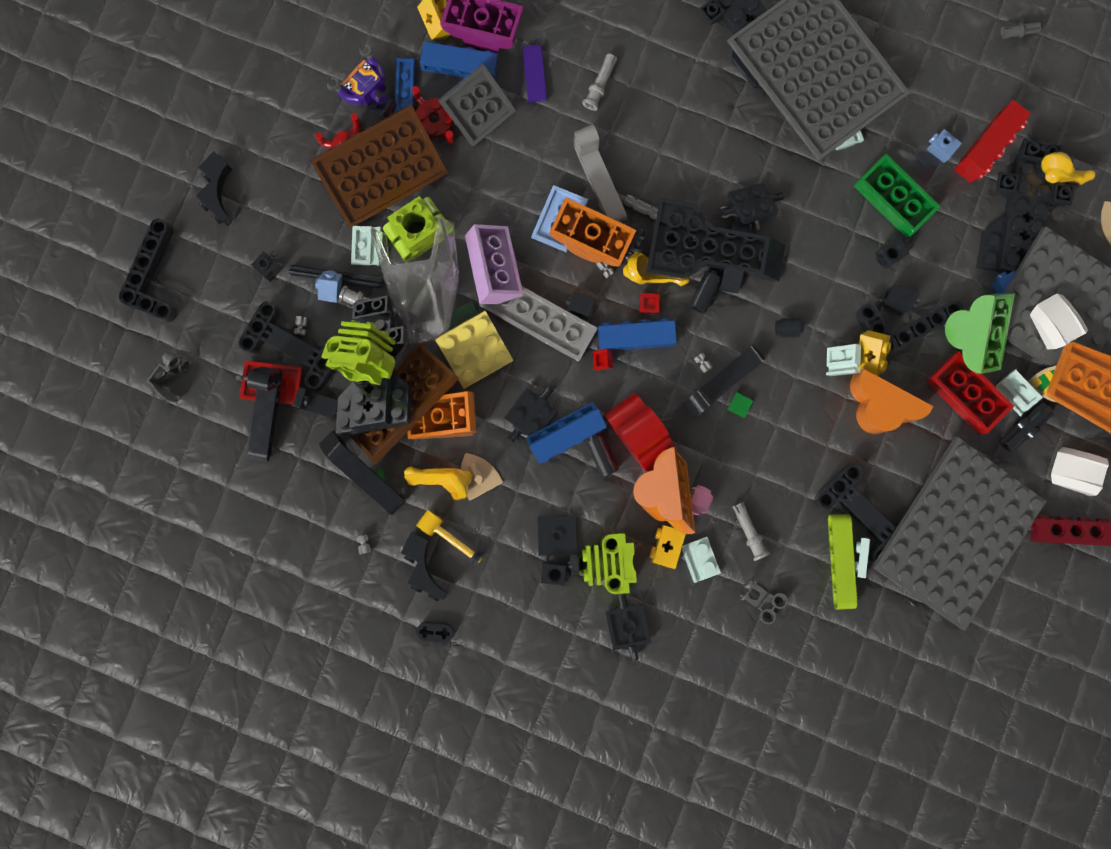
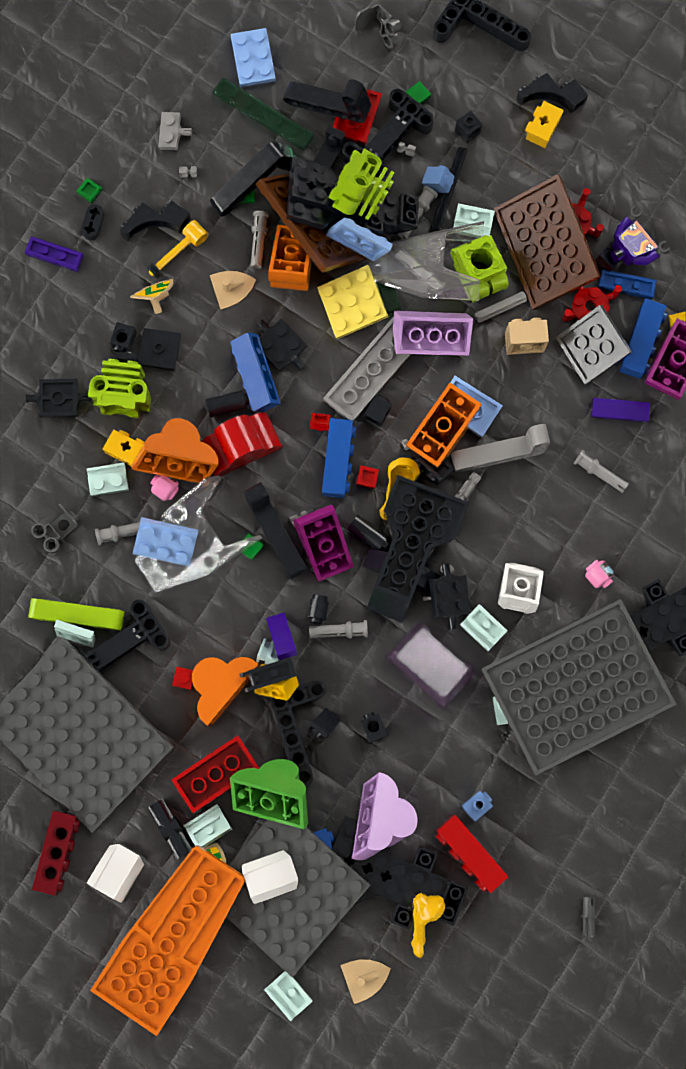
camera: 100 degrees right, 5 degrees down
(225, 502) = (253, 57): none -> light blue plate
(237, 324) = (419, 93): none -> green tile
(242, 185) = (540, 133): none -> yellow brick
(286, 480) = (263, 114): none -> clear green tile
(321, 570) = (171, 131): none -> light grey plate
(400, 643) = (89, 190): none -> green tile
(413, 349) = (359, 239): none -> light blue plate
(414, 458) = (259, 231): none -> light grey pin
(451, 204) = (500, 307): none -> light grey axle
(452, 479) = (231, 262): yellow hair -> none
(476, 665) = (54, 254): none -> dark purple tile
(481, 172) = (526, 336): none -> tan brick
(500, 551) = (155, 293): none -> shield
(701, 67) = (599, 574): none -> bright pink head
(724, 332) = (323, 542): none -> magenta brick
(729, 138) = (520, 588): none -> white slope
(756, 463) = (208, 551): none -> clear windscreen
(758, 486) = (165, 541): none -> light blue plate
(774, 168) = (483, 627): none -> light aqua plate
(802, 294) = (348, 629): none -> light grey pin
(823, 210) = (431, 665): none -> clear purple windscreen
(827, 354) = (281, 636): none -> dark purple tile
(873, 355) = (269, 674): none -> black hinge
(880, 444) = (183, 678): none -> red plate
(897, 196) = (431, 743): green brick -> none
(983, 227) = (382, 817): none -> lavender brick

